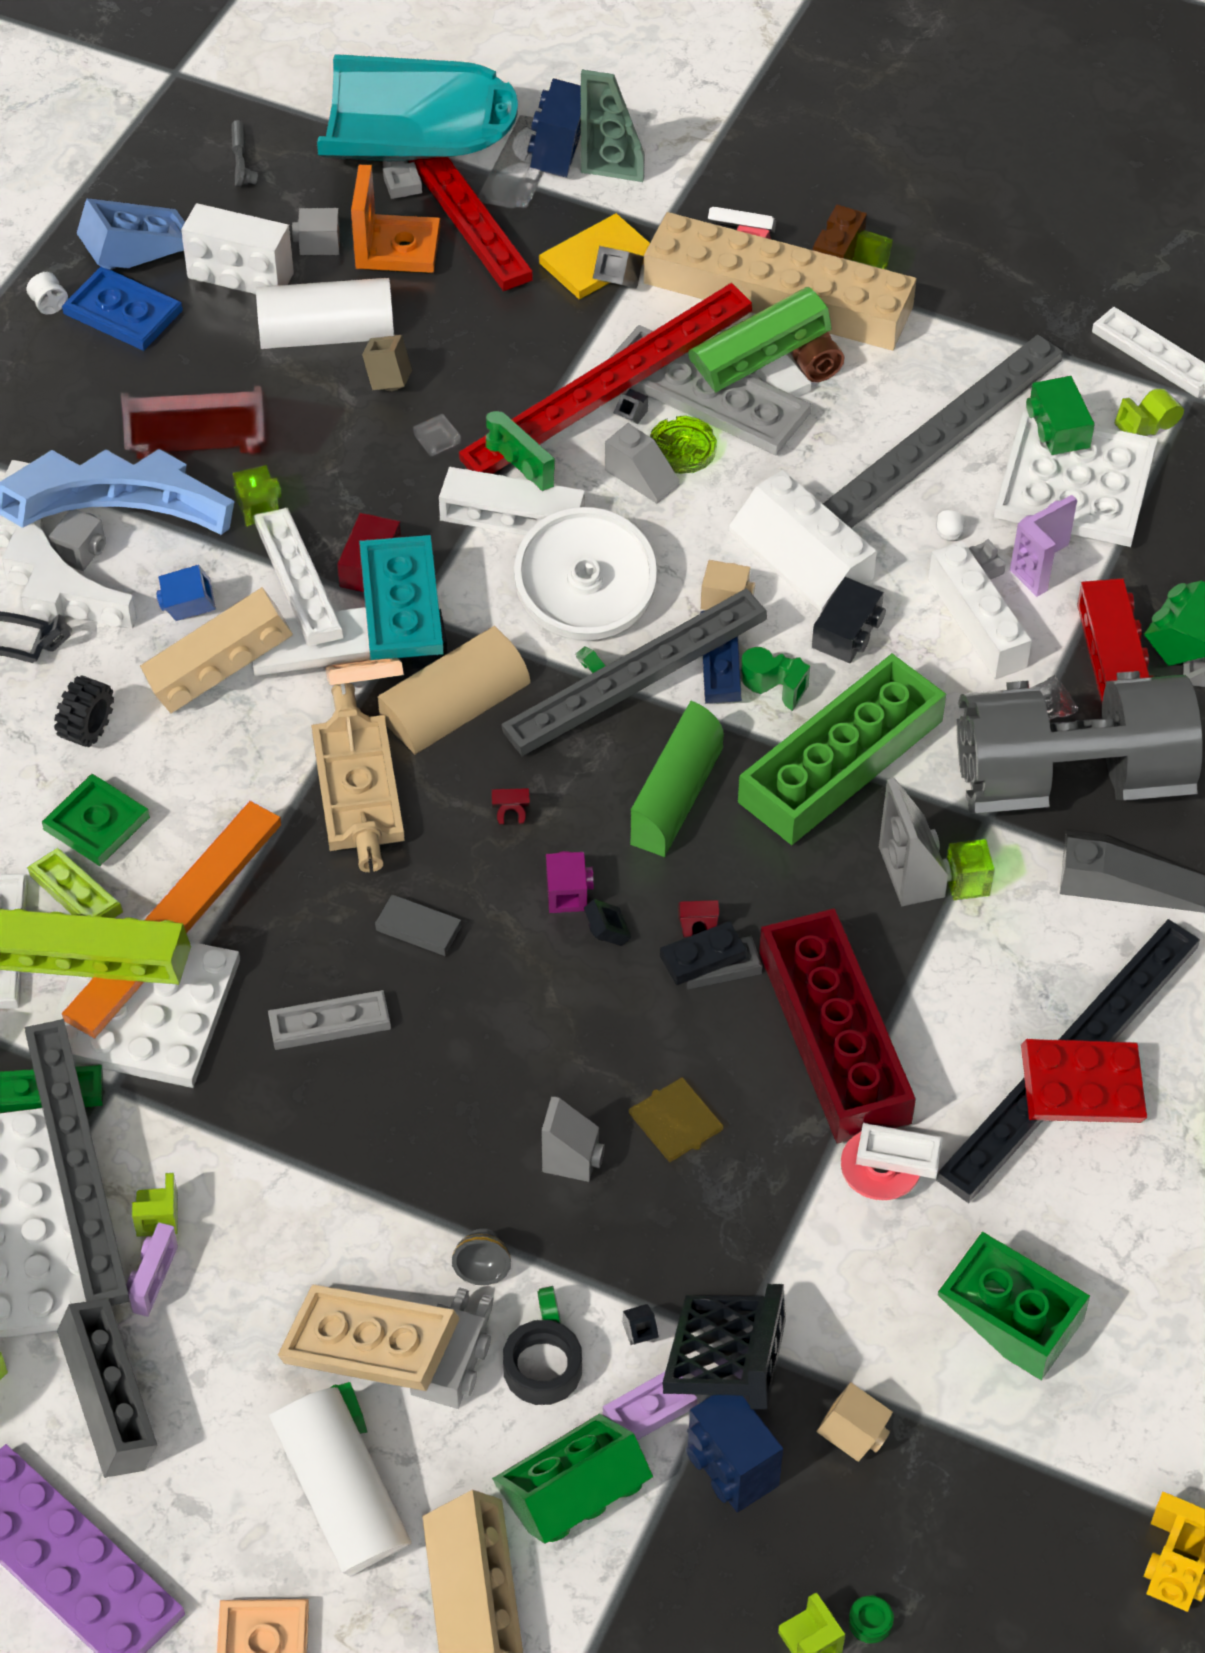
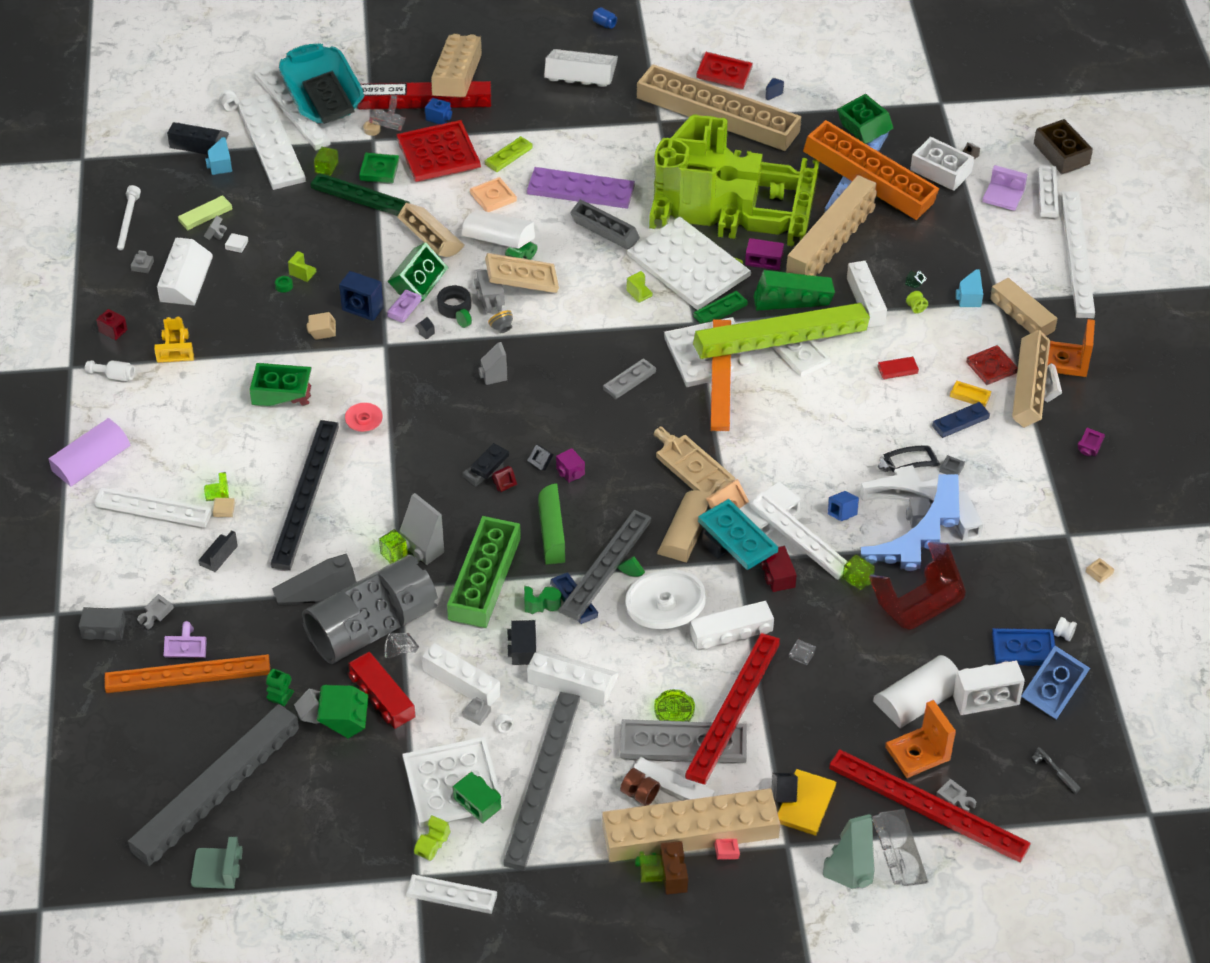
camera: 150 degrees right, 5 degrees down
(73, 886) = (774, 373): lime tile -> none
(76, 1163) = (678, 276): dark grey plate -> none
(84, 711) = (836, 433): black tyre -> none
(95, 819) = (792, 403): green plate -> none
(156, 1259) = (621, 265): lavender plate -> none
(216, 650) = (800, 477): tan brick -> none
(317, 231) = (967, 734): light grey brick -> none
(387, 362) = (855, 665): dark tan brick -> none
(414, 109) = (965, 804): teal windscreen -> none
(418, 925) = (622, 427): dark grey tile -> none
(510, 800) = (621, 488): dark red tile -> none
(520, 450) = (743, 634): green plate -> none
(556, 128) = (887, 849): dark blue brick -> none
(632, 406) = (713, 709): black piece -> none
(639, 463) = (686, 677): light grey slope -> none
(676, 1119) = (461, 405): clear yellow piece -> none
(724, 581) = (594, 631): tan brick -> none
(737, 218) = (741, 860): white tile -> none
(758, 1346) = (368, 318): black fence -> none
(761, 339) = (668, 760): bright green brick -> none
(836, 1024) = (414, 454): dark red brick -> none
(899, 1150) = (358, 419): white tile -> none
(1037, 542) = (447, 711): lavender bracket -> none
(1083, 1081) = (294, 478): red plate -> none

